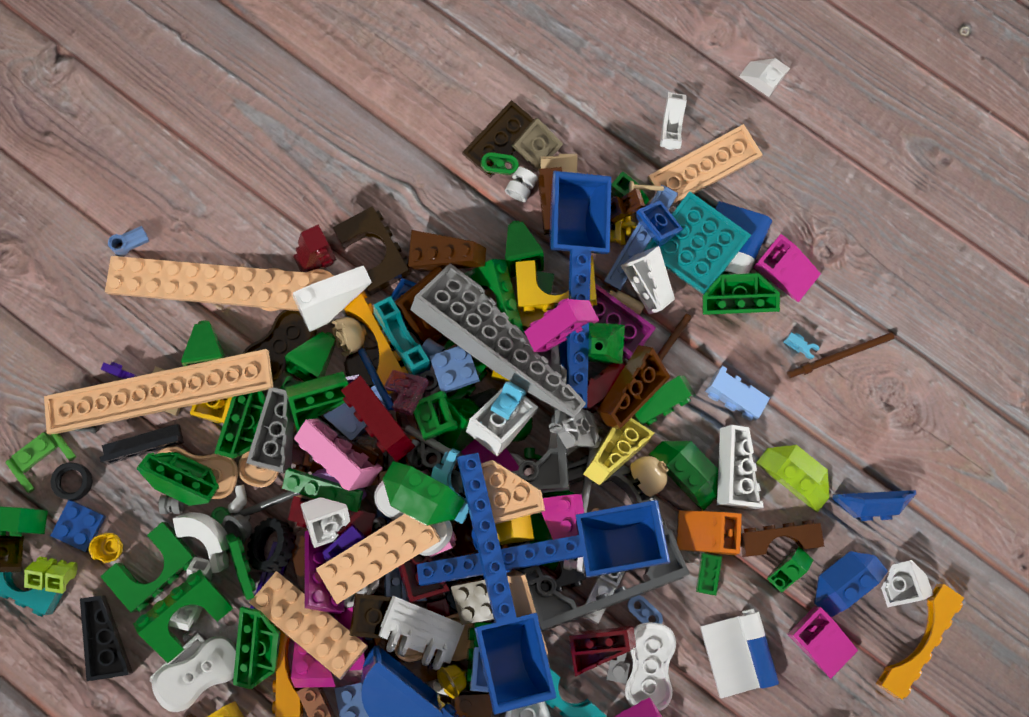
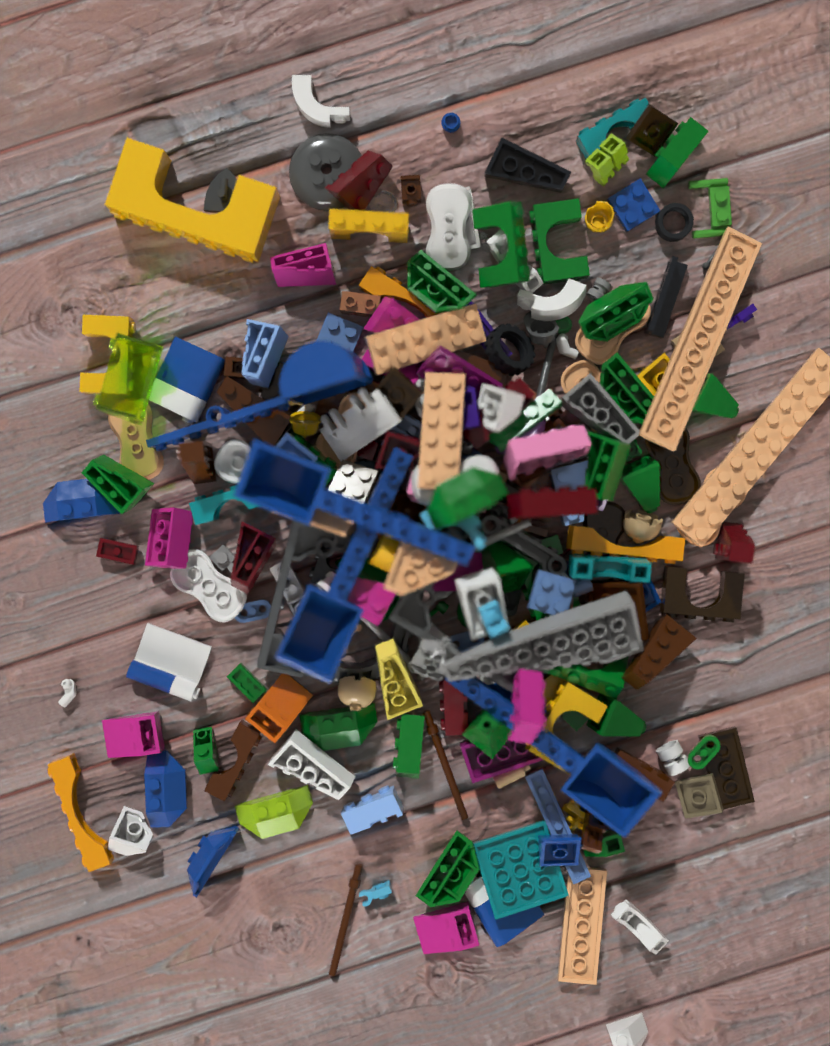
camera: 125 degrees right, 10 degrees up
(241, 565) = (510, 315): green plate -> none
(328, 297) = (684, 529): white wedge -> none
(375, 378) = (587, 523): blue bar -> none
(409, 388) = (560, 546): clear pink plate -> none
(428, 419) = (524, 544): green plate -> none
(544, 414) = (465, 641): none -> medium blue plate
(566, 161) = (667, 810): tan slope -> none
(634, 387) = (435, 730): reddish brown wedge -> none
(644, 187) = (605, 849): tan pin -> none
(650, 279) = (516, 807): white wedge -> none

